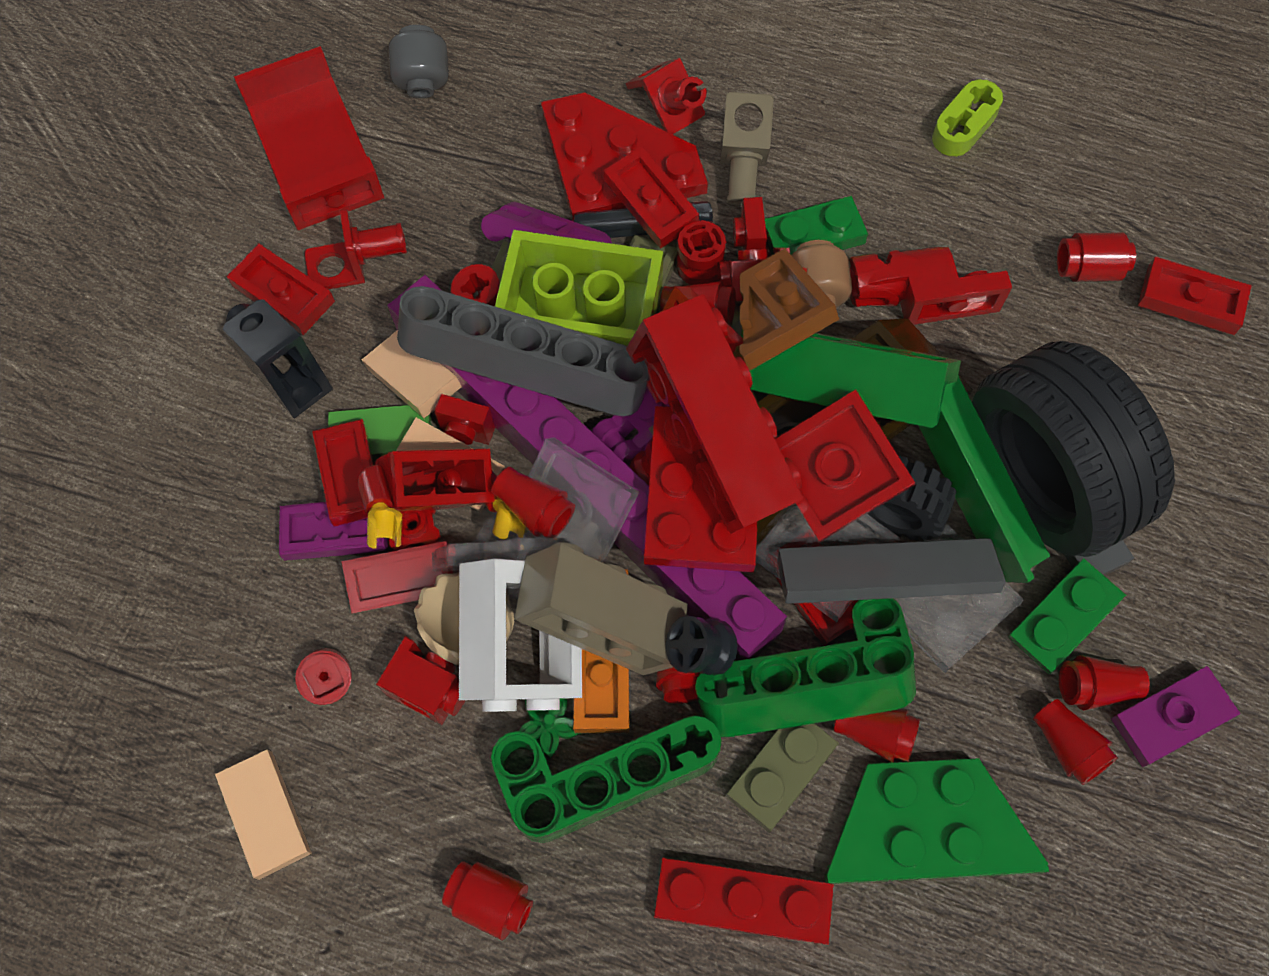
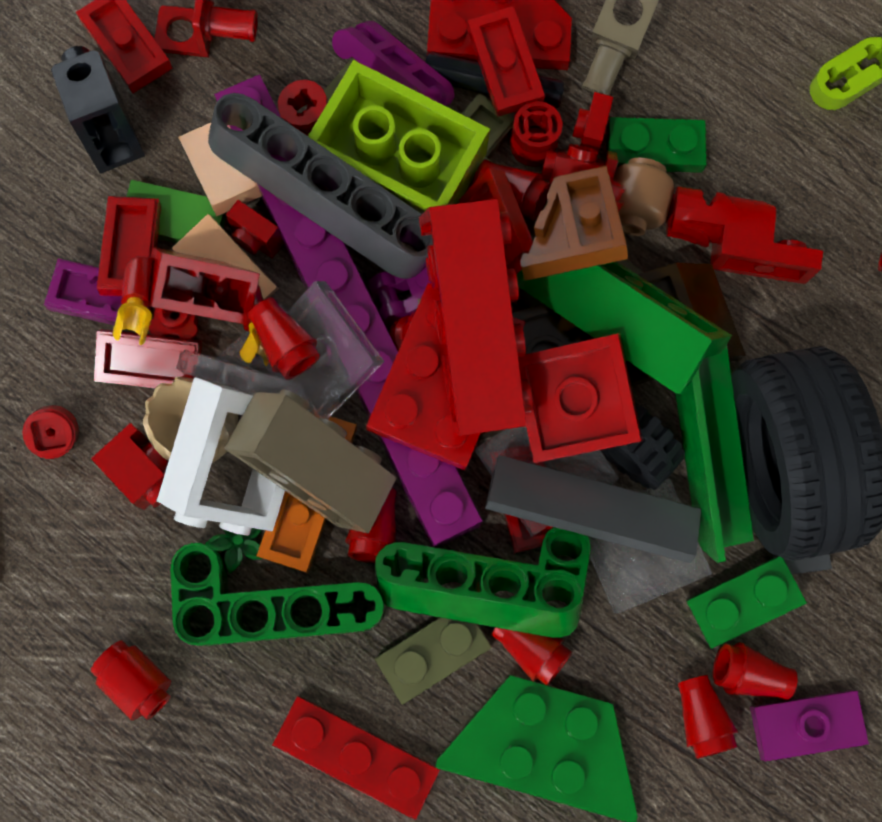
camera: 10 degrees right, 10 degrees up
(701, 645) = (391, 523): black wheel -> none

